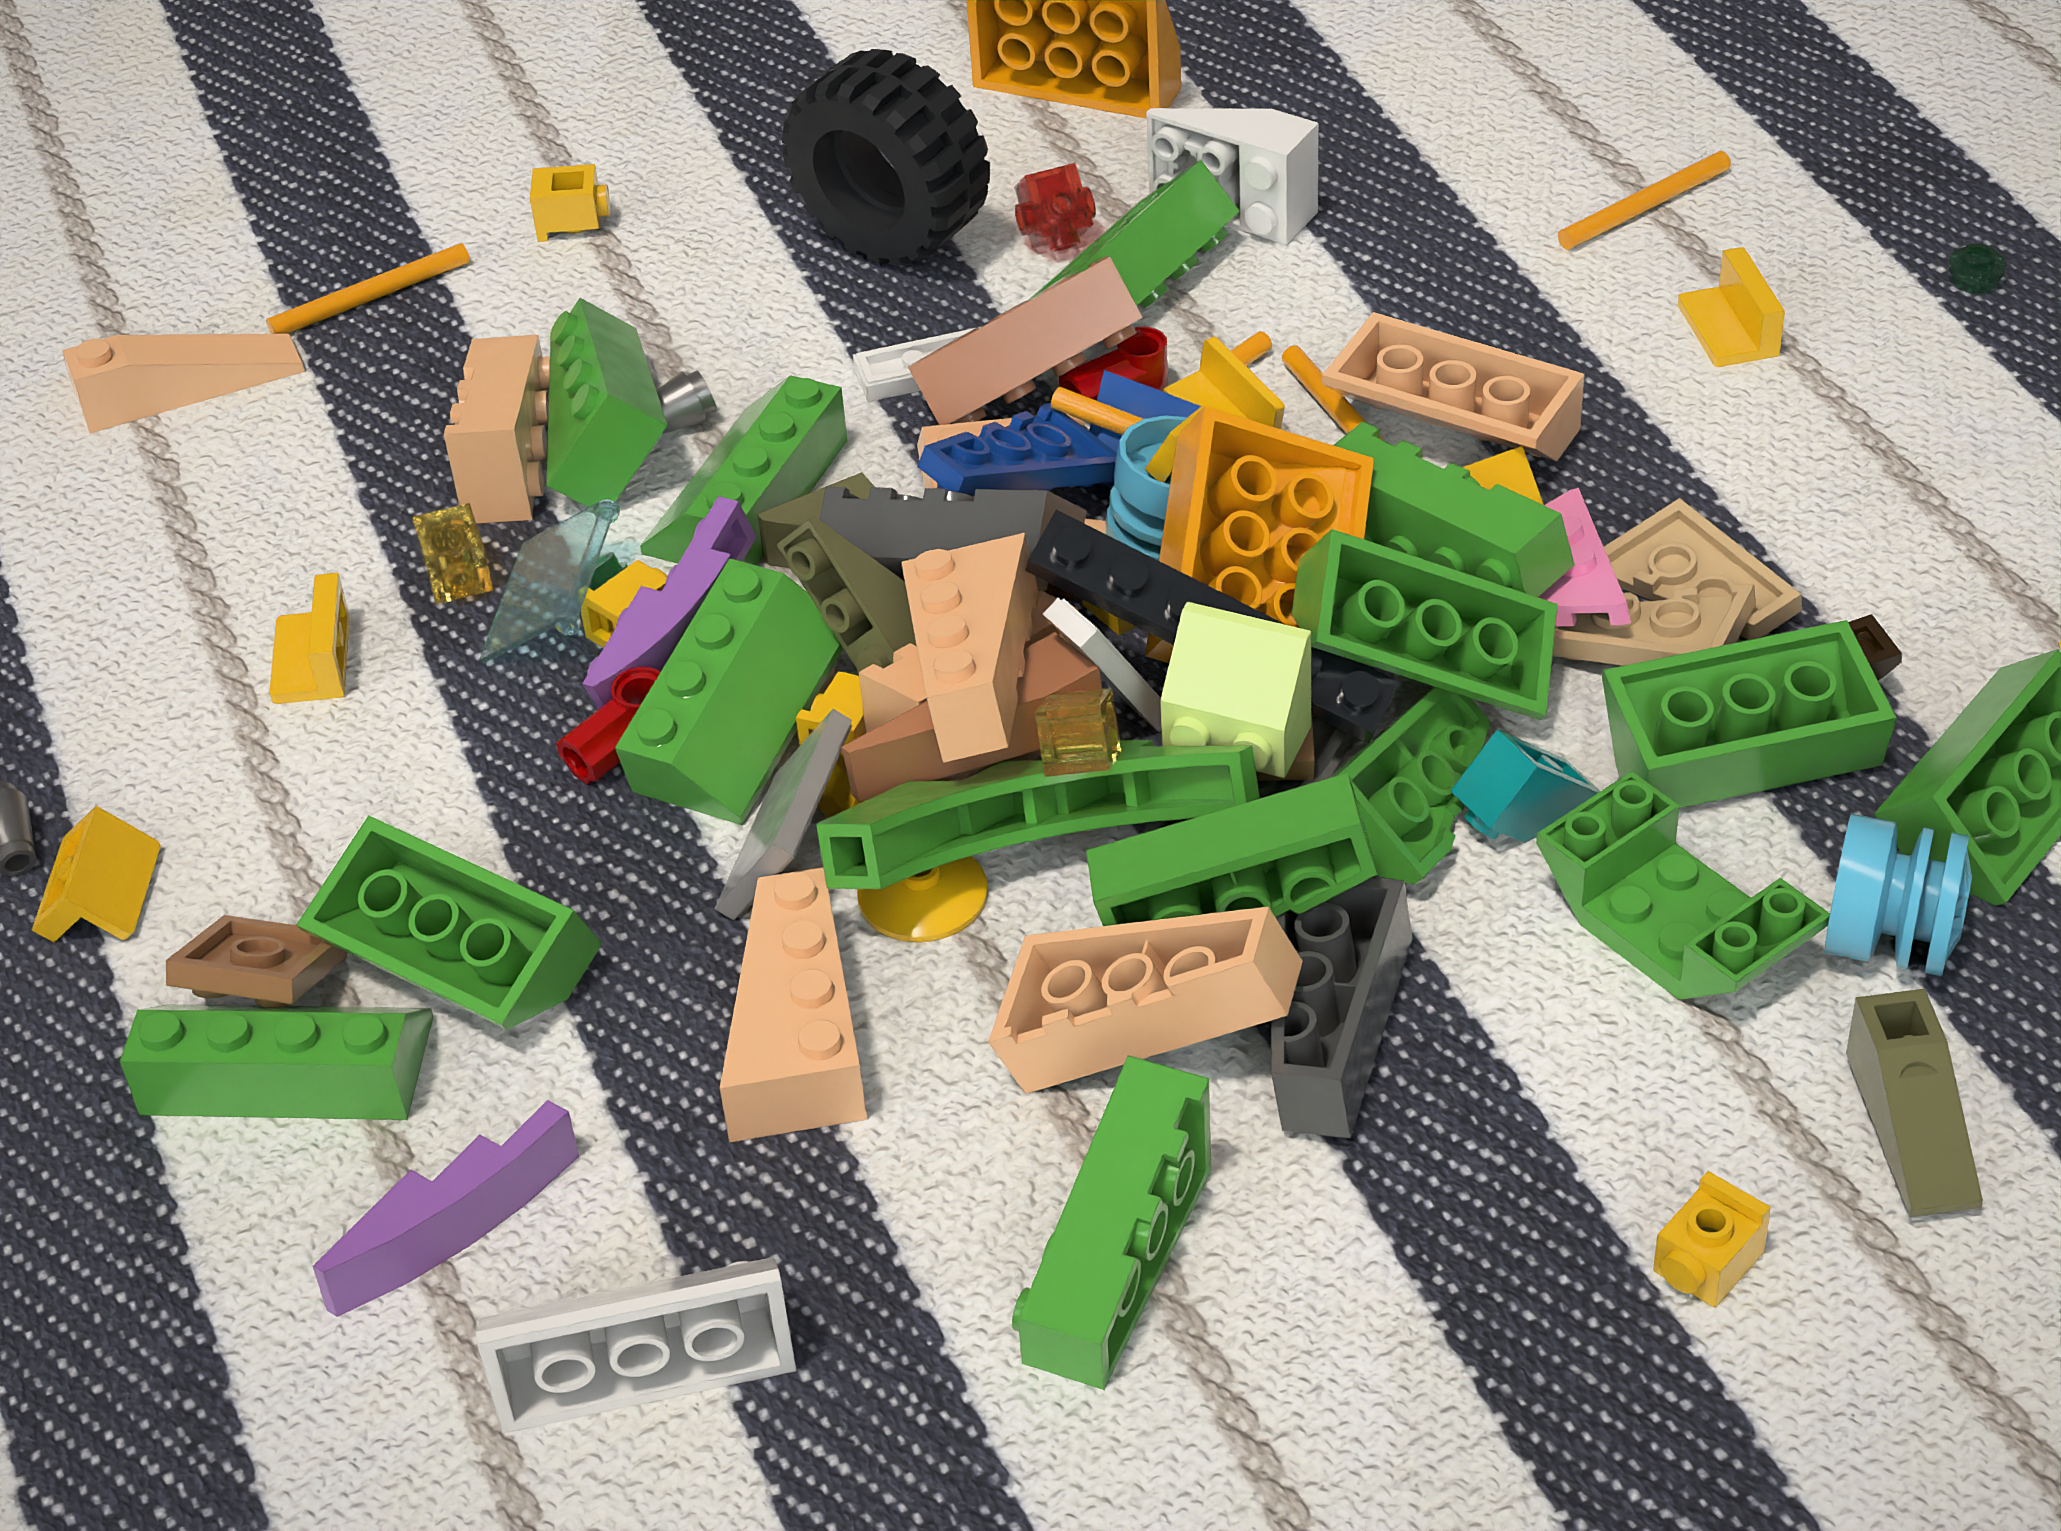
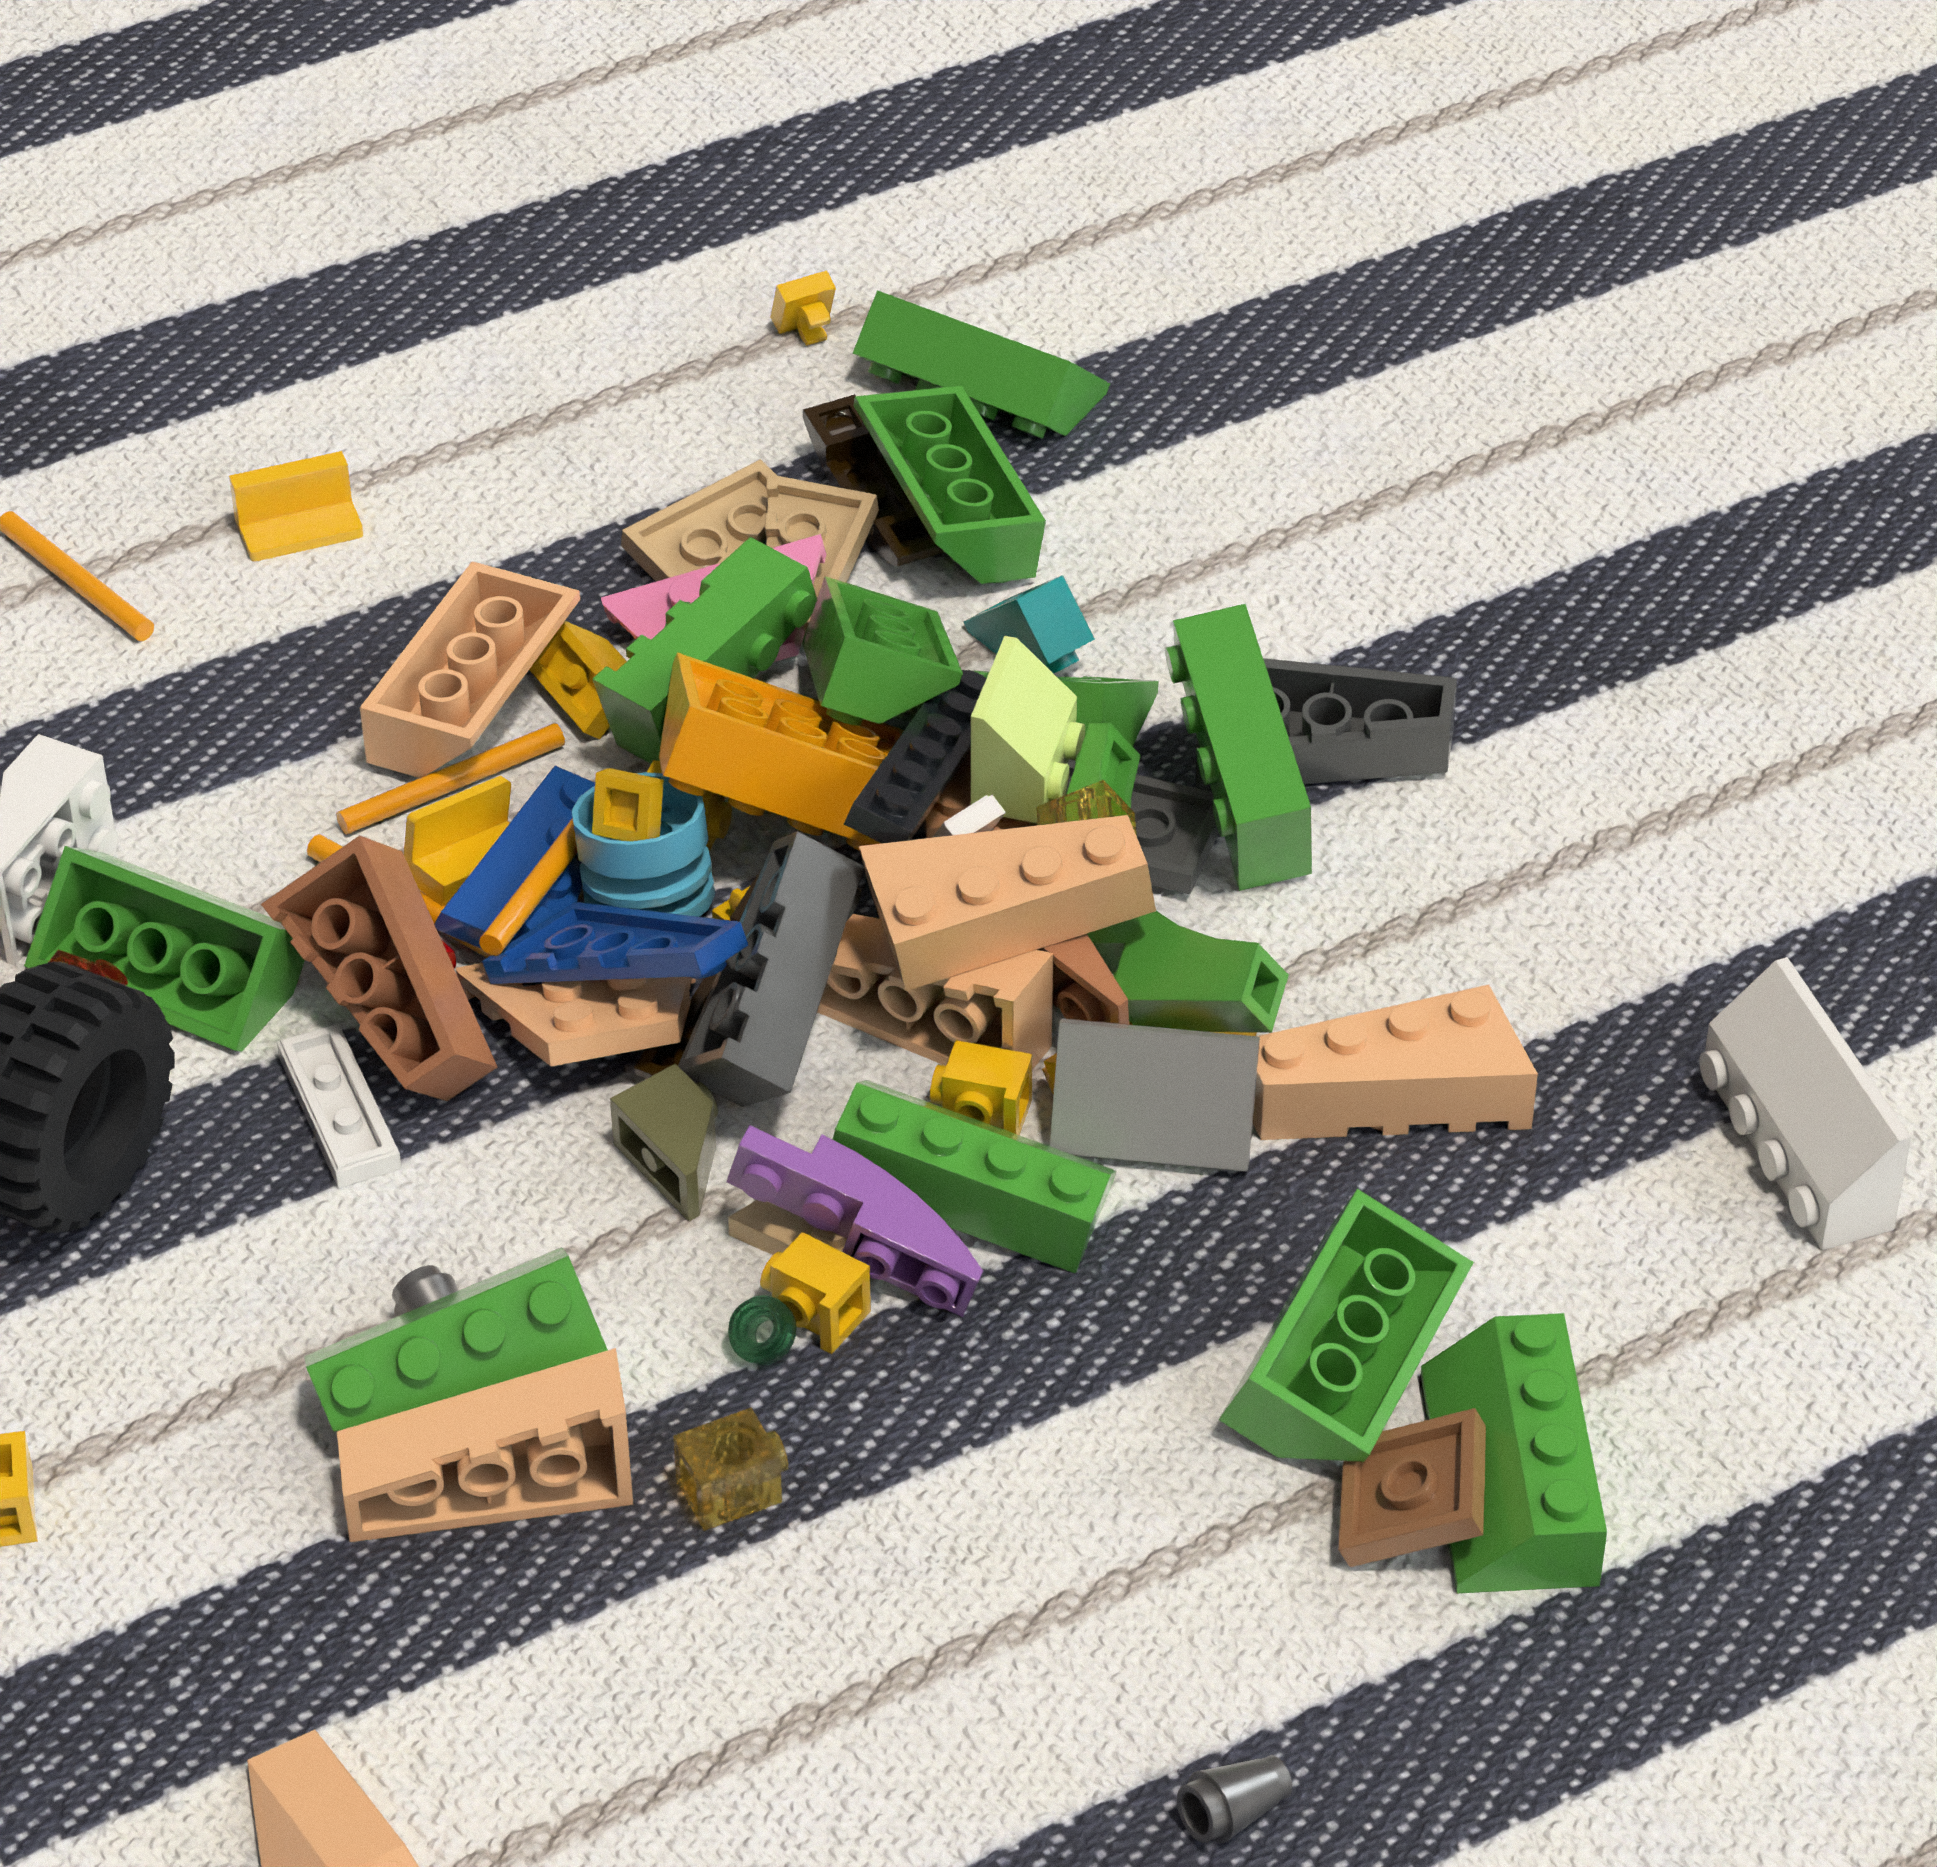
camera: 100 degrees left, 0 degrees up
(98, 877) = (1299, 1695): yellow panel -> none
(312, 647) = (885, 1577): yellow panel -> none
(368, 290) = (154, 1693): light orange bar -> none
(431, 1221) = (1705, 1293): medium lavender slope -> none
(550, 580) = (793, 1359): clear light blue piece -> none
(591, 745) = (1016, 1268): red piece -> none
(763, 461) = (630, 1225): bright green slope -> none
(852, 591) = (882, 1045): olive slope -> none
(1118, 1223) = (1603, 831): bright green wedge -> none
(1139, 991) = (1371, 830): light nougat wedge -> none
(1662, 903) = (1182, 537): bright green slope -> none
(1712, 1240) = (1522, 527): yellow brick -> none
(1897, 894) = (1158, 404): medium azure wheel -> none
(1914, 1100) = (1354, 416): olive slope -> none
(1976, 268) = (226, 359): clear green plate -> none

